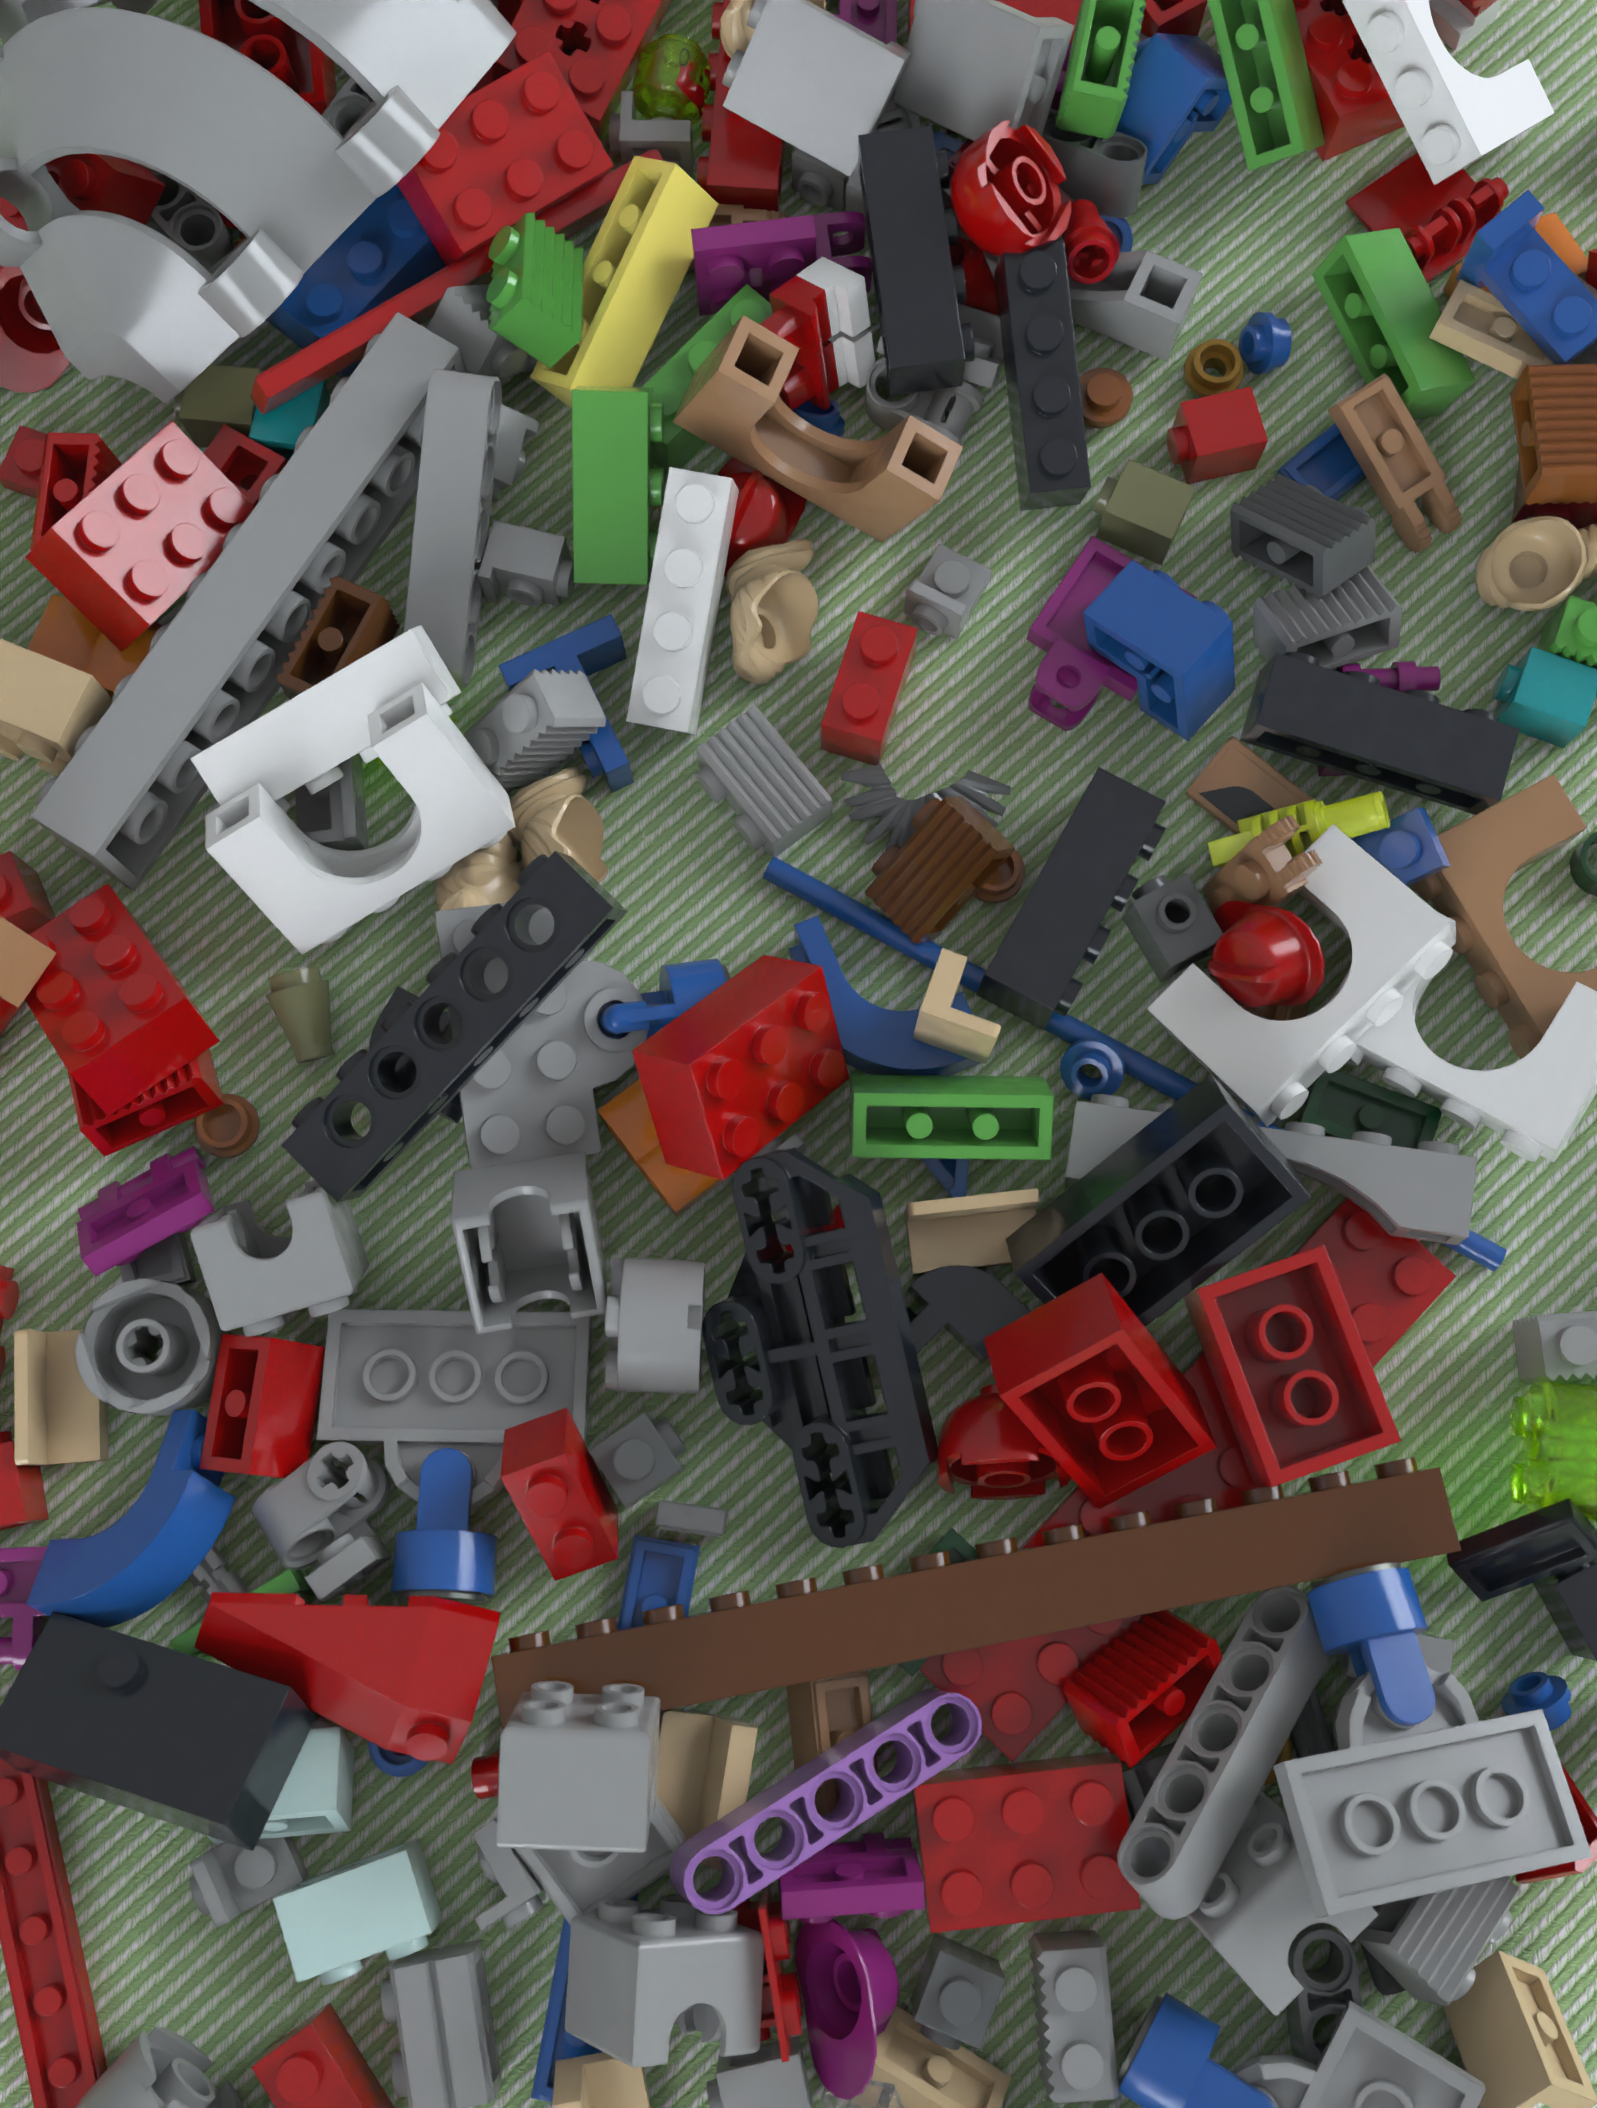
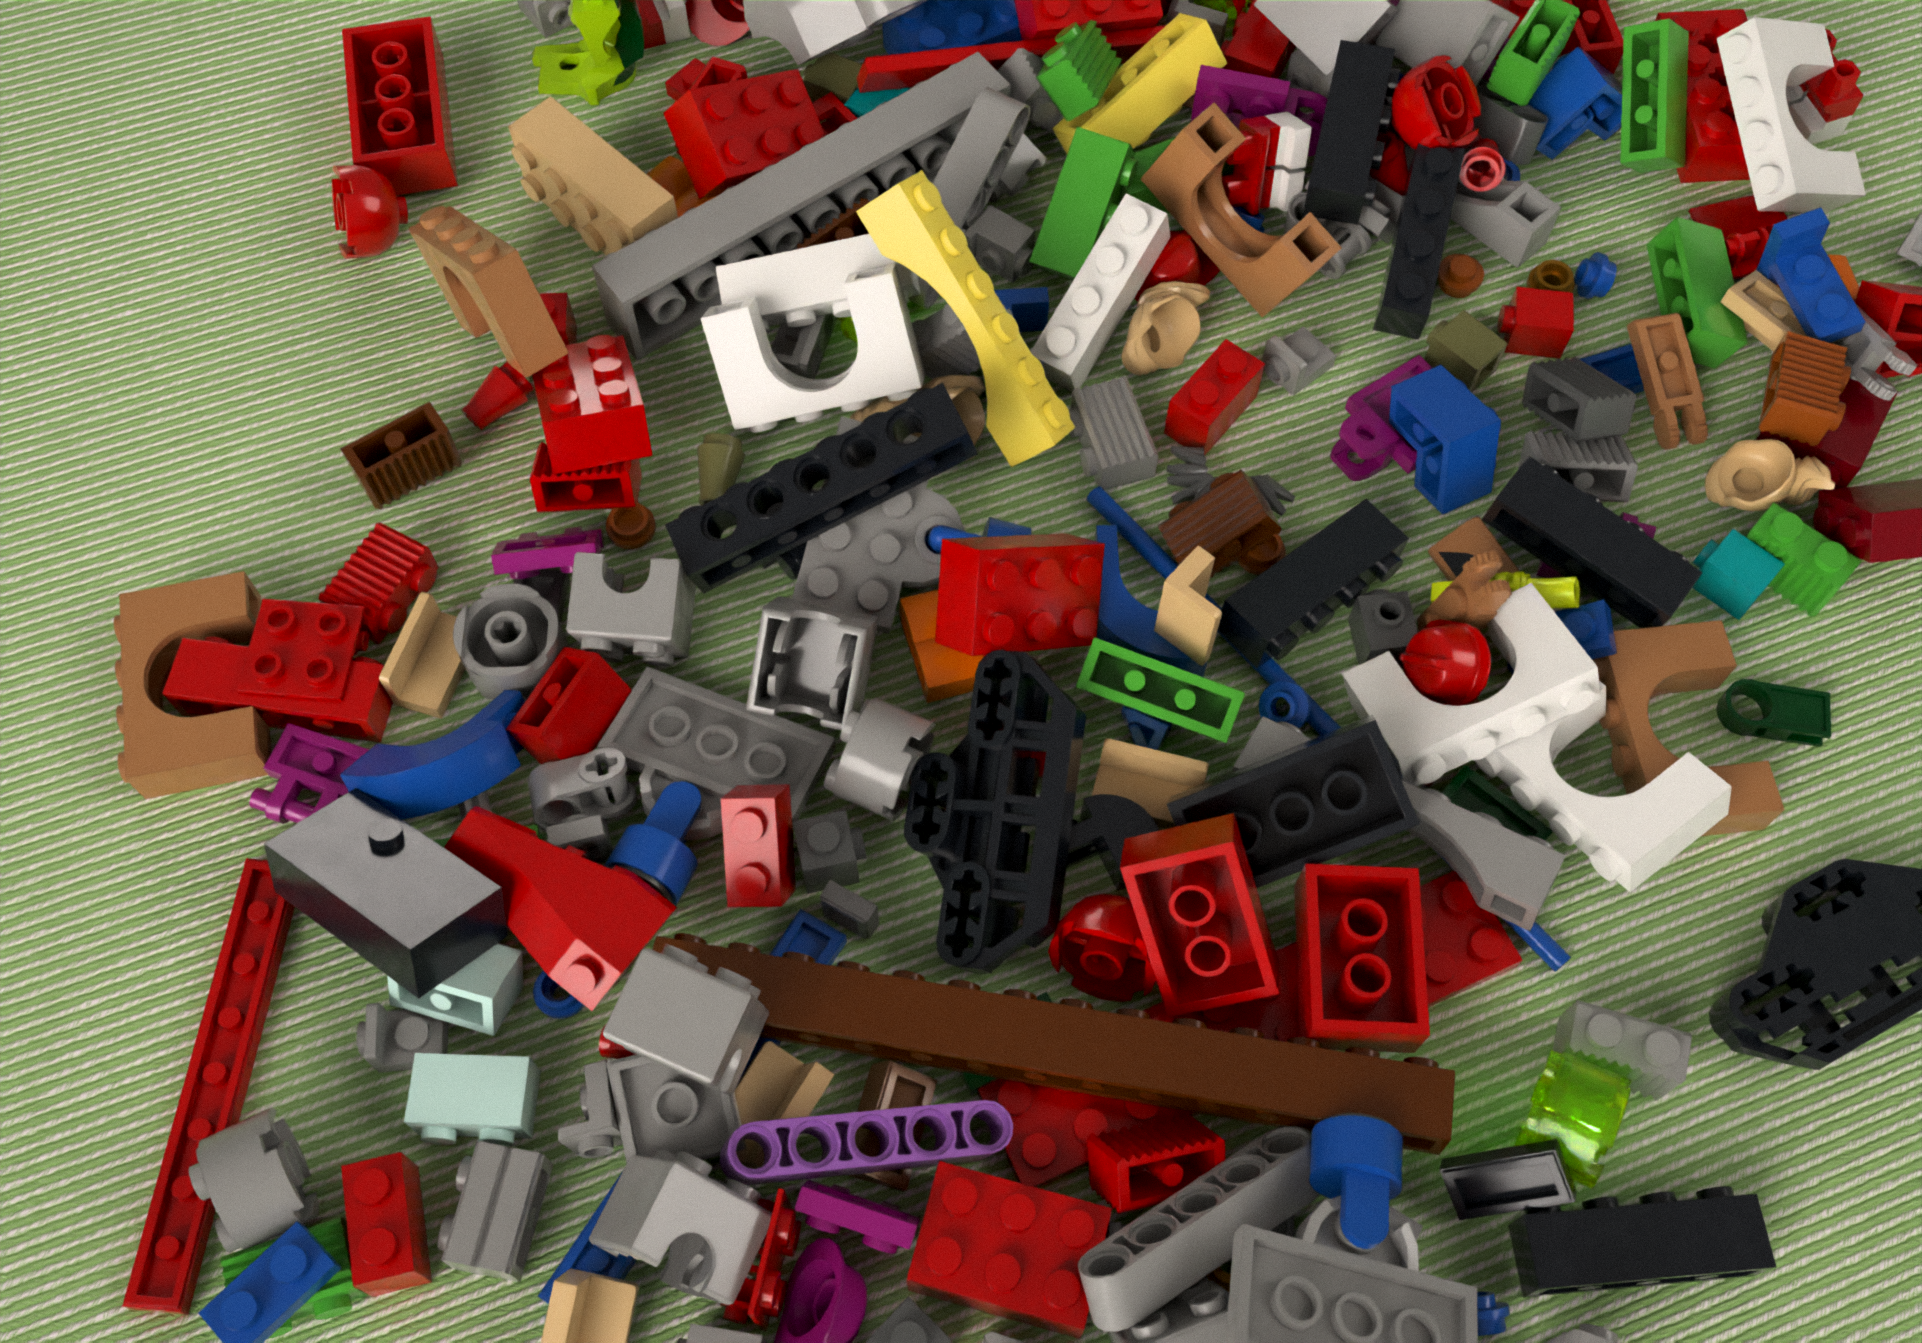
camera: 20 degrees right, 15 degrees down
(446, 647) = (919, 233): none -> light yellow arch

